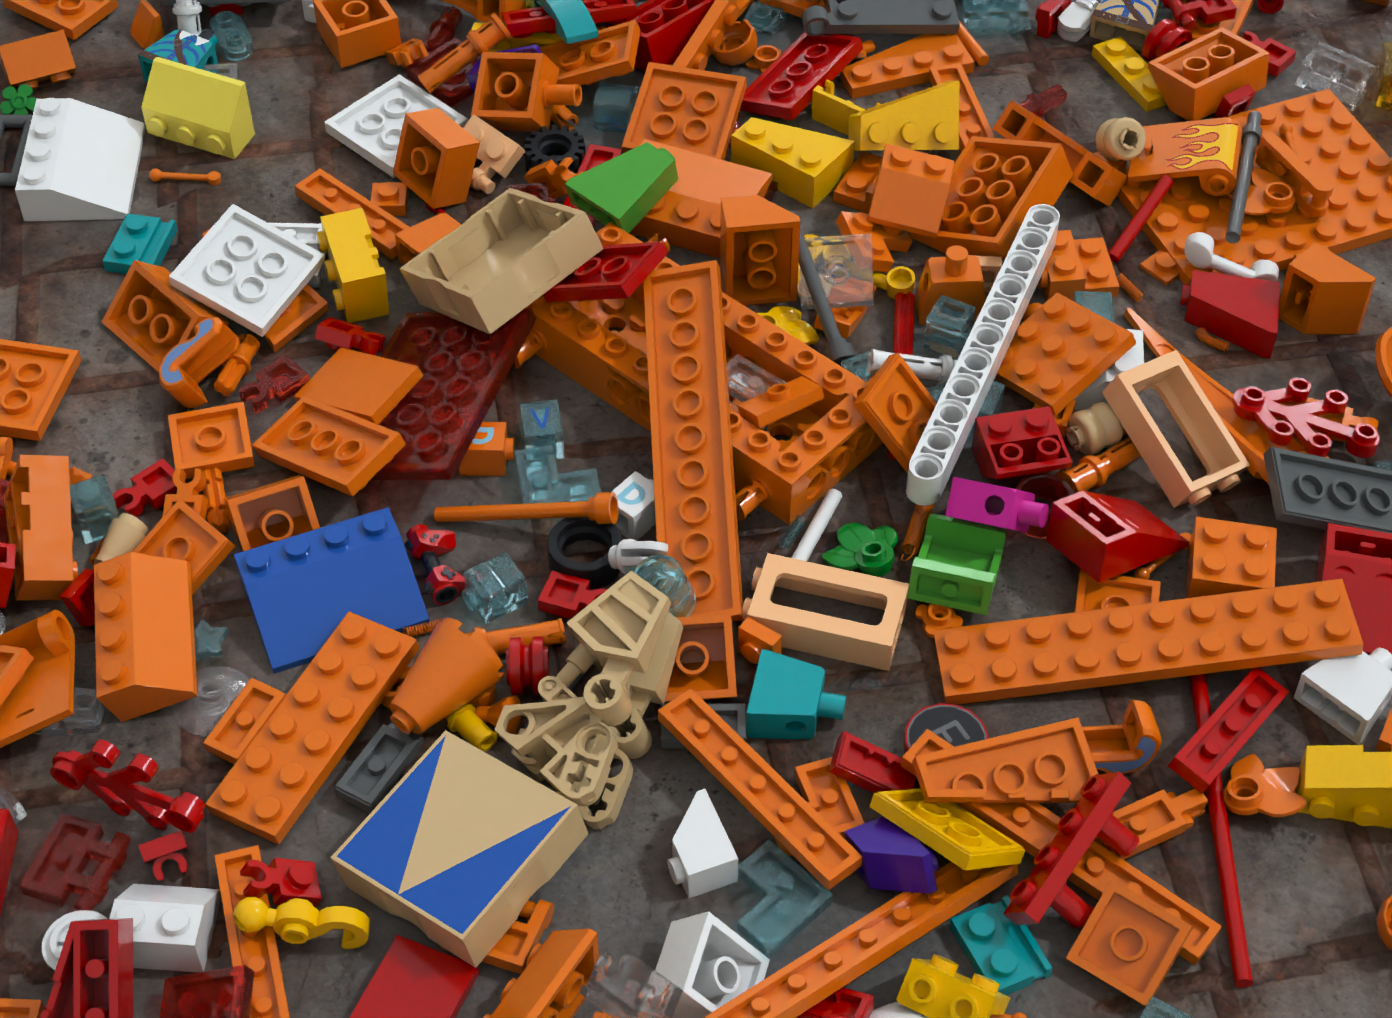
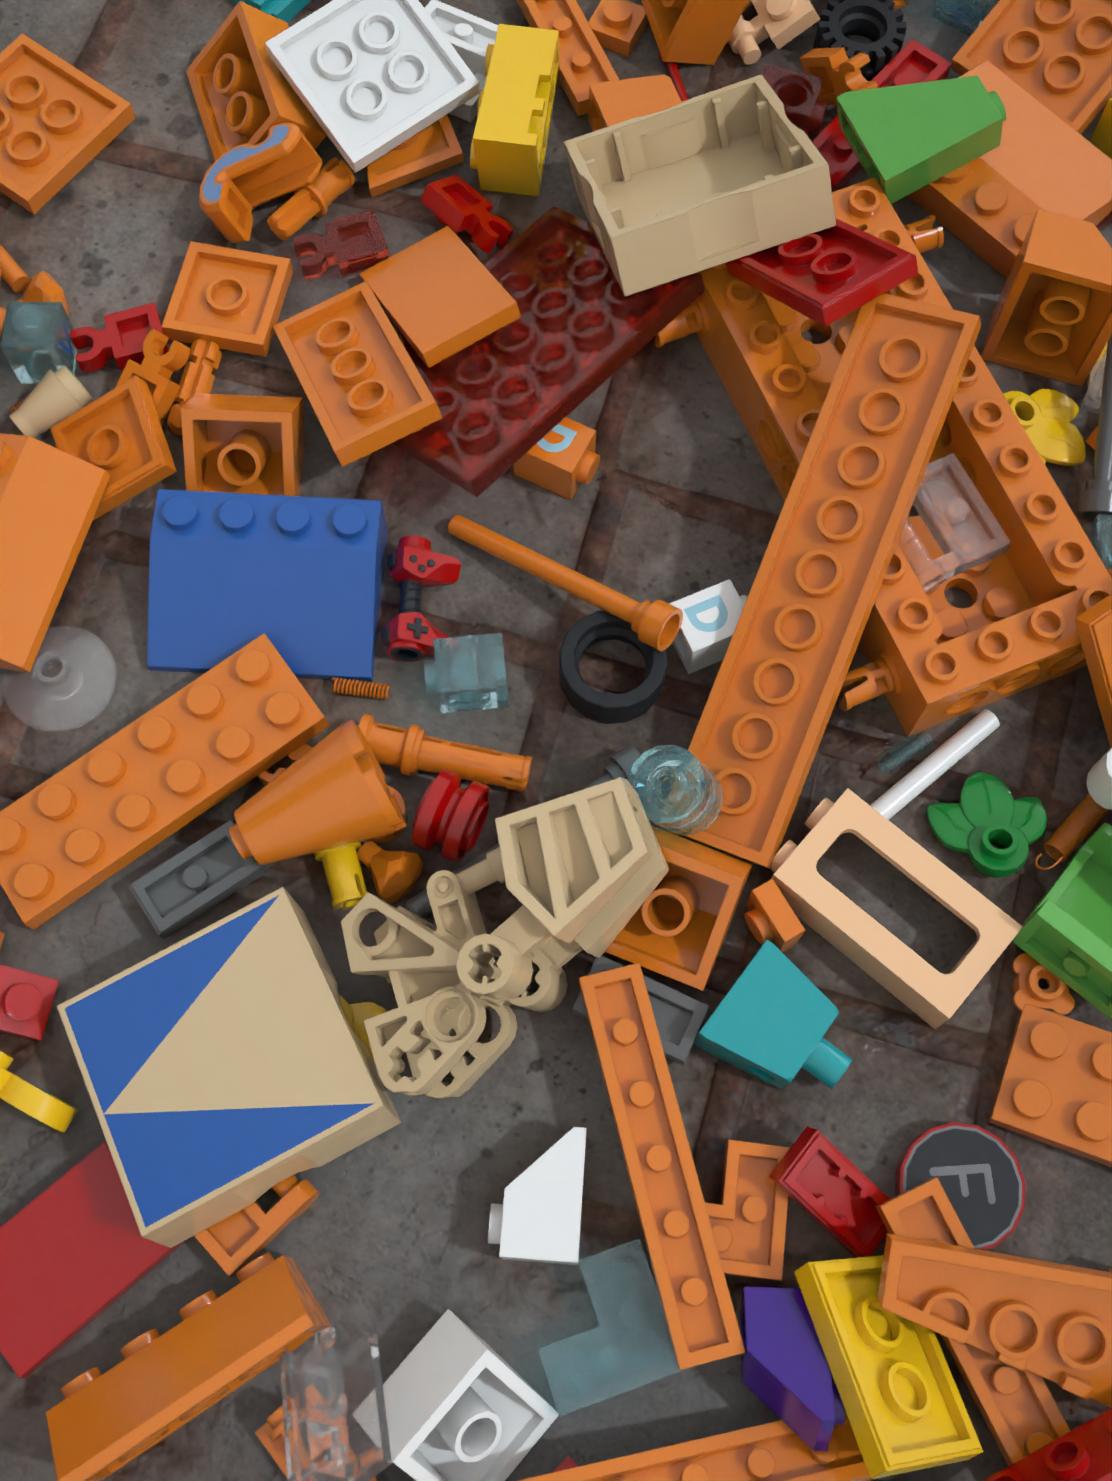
camera: 25 degrees right, 20 degrees up
(209, 640) = (85, 592): clear light blue piece -> none
(243, 720) = (70, 731): orange plate -> none
(542, 426) = (643, 456): clear light blue brick -> none
(543, 483) = (611, 552): clear light blue plate -> none
(566, 595) = (560, 726): red plate -> none
(629, 553) = (660, 713): white arm -> none
(781, 401) = (976, 561): orange plate -> none

